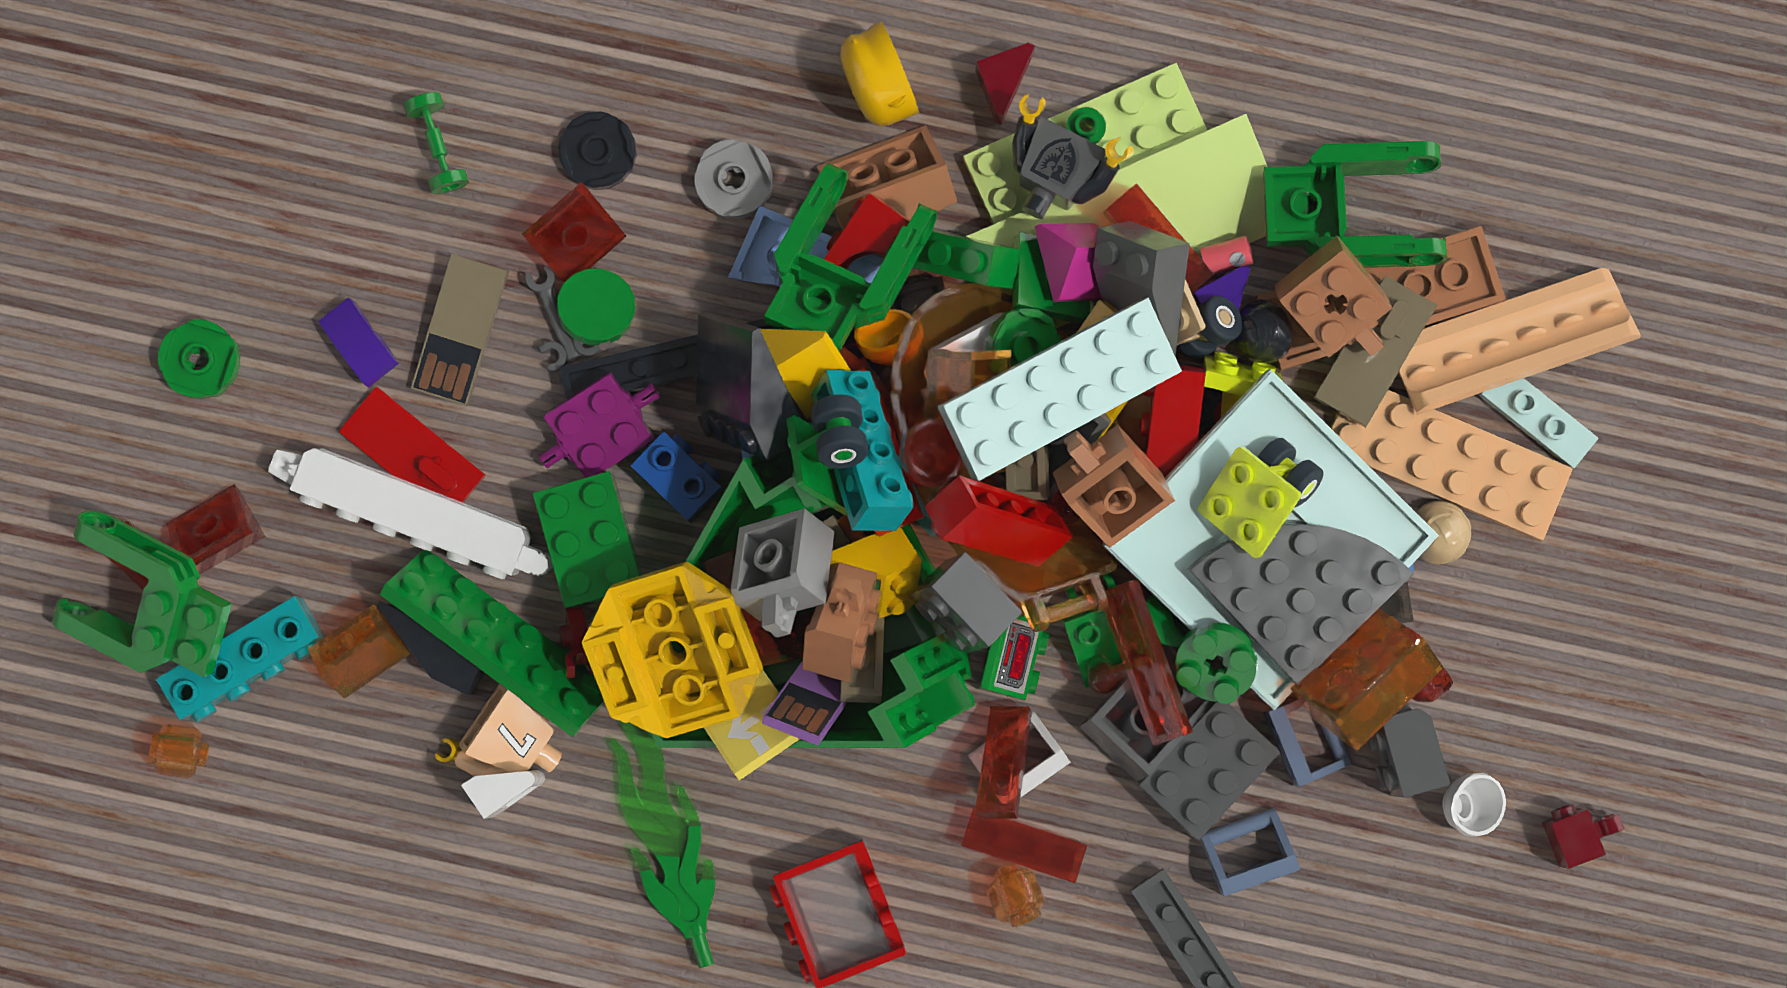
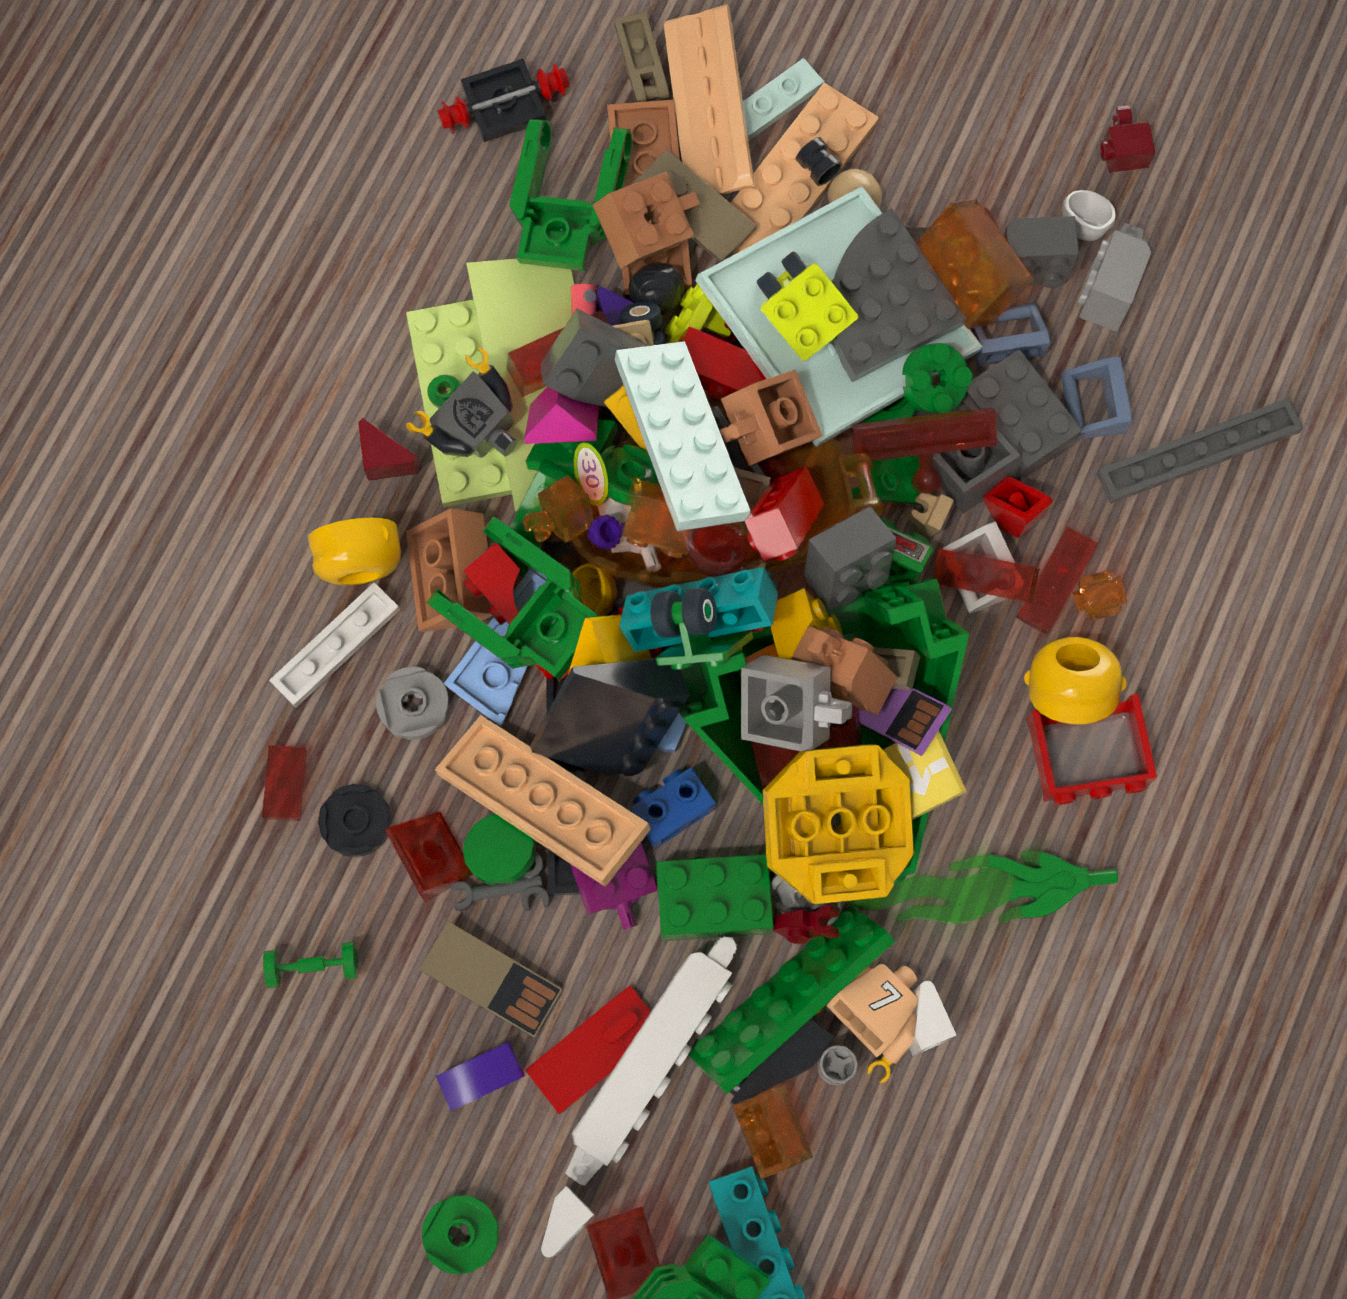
camera: 80 degrees left, 10 degrees down
(228, 460) = (566, 1220): none -> white tile
(436, 704) = (839, 1060): none -> light grey wheel
(621, 68) = (284, 783): none -> clear red plate
(649, 338) = (543, 800): none -> light nougat plate
(779, 81) = (334, 645): none -> white plate
(881, 887) = (1075, 681): none -> yellow piece
(944, 333) = (605, 532): none -> dark purple piece
(954, 283) = (564, 511): none -> clear orange brick
(1010, 304) = (591, 473): none -> sticker
(1068, 694) = (934, 515): none -> tan tile
(1094, 780) = (1016, 506): none -> red slope
(1400, 850) = (1114, 278): none -> light grey hinge
(1461, 107) = (503, 99): none -> black plate
(1461, 481) = (819, 161): none -> black wheel
(1553, 251) = (641, 57): none -> dark tan plate

